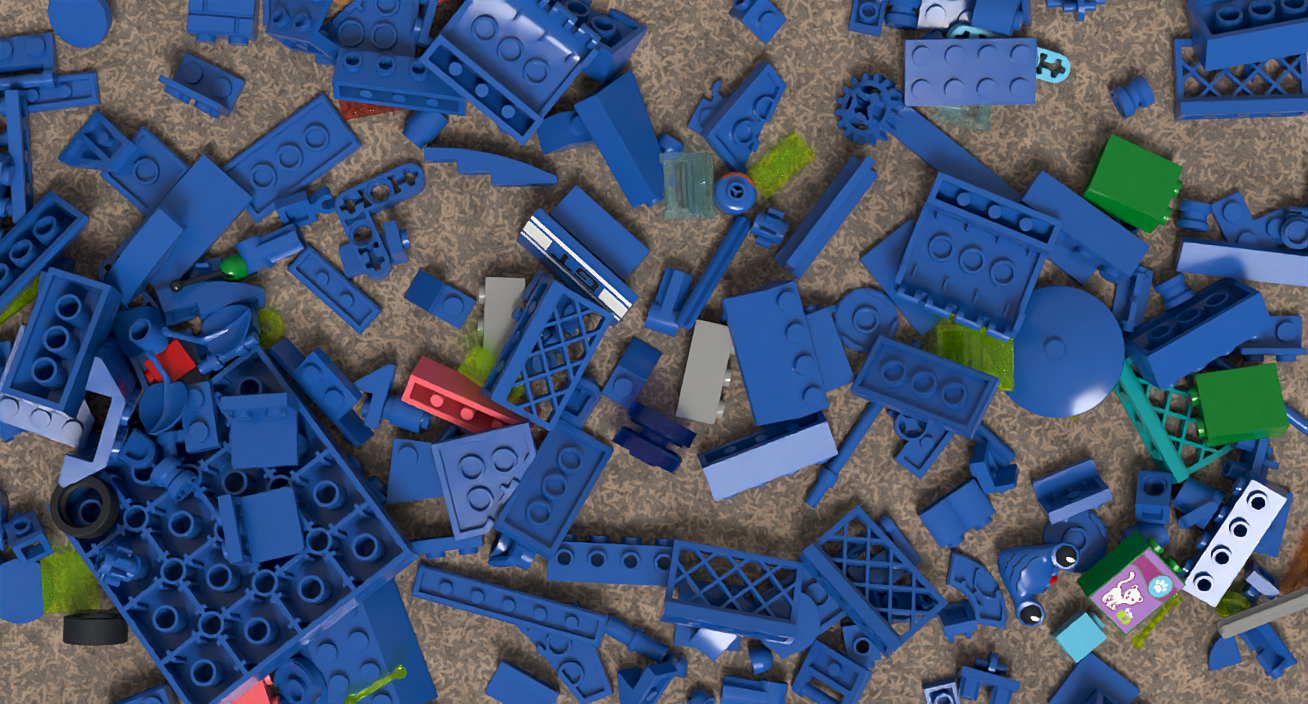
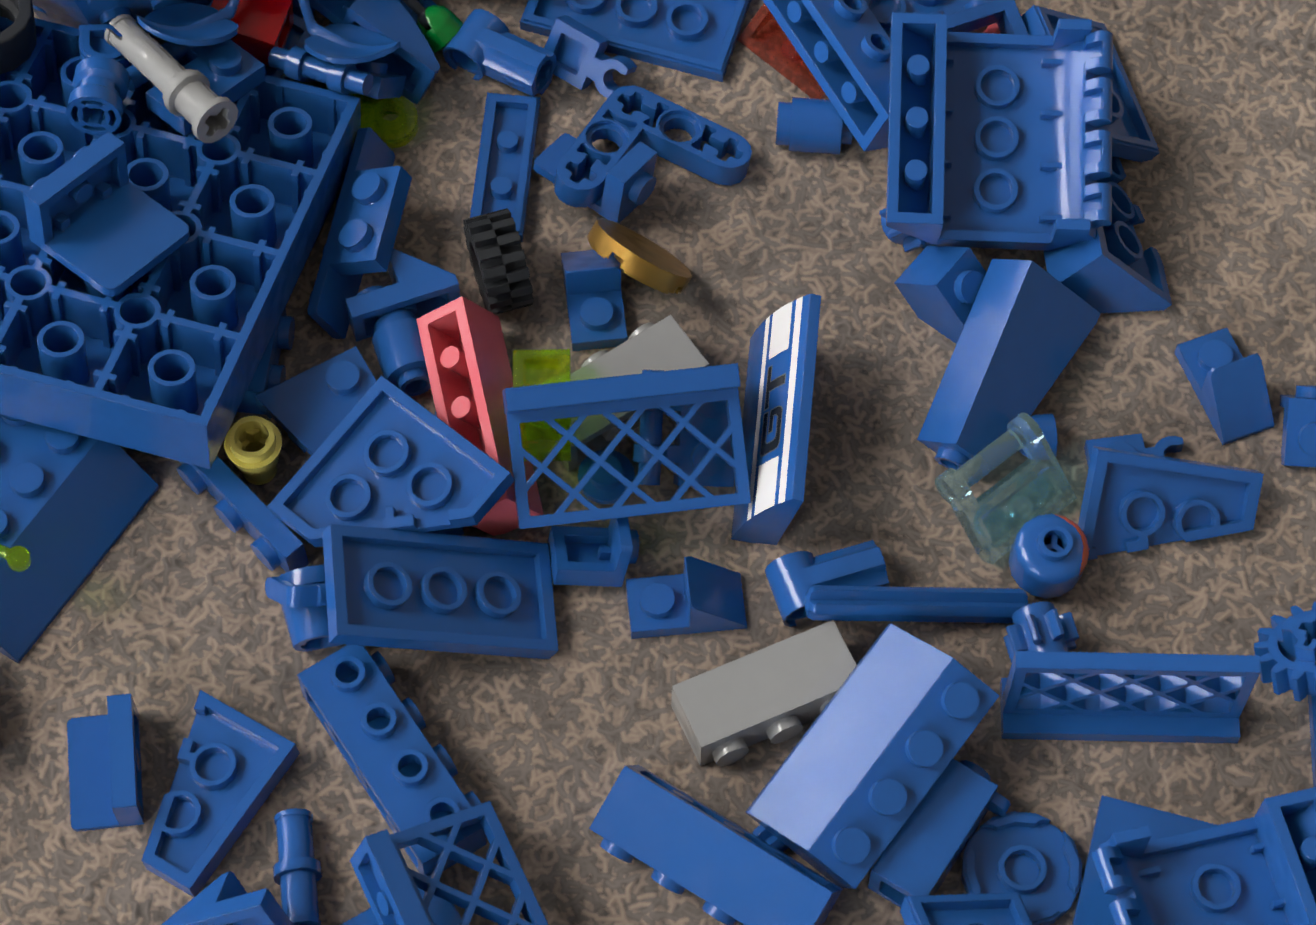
camera: 55 degrees right, 25 degrees down
(207, 438) = (183, 90): none -> light grey pin
(263, 430) = (259, 159): blue bracket -> none
(395, 337) = (498, 261): none -> black tyre
(404, 524) = (254, 448): none -> light yellow cone
(441, 266) = (639, 257): none -> pearl gold tile
(503, 170) = (827, 245): blue slope -> none
(510, 605) = (225, 664): blue tile -> none
(599, 233) = (847, 426): blue brick -> none
(652, 440) = (612, 677): clear blue wheel -> none
(706, 36) = (1227, 385): none -> blue slope
(780, 165) = (1138, 600): clear neon green plate -> none

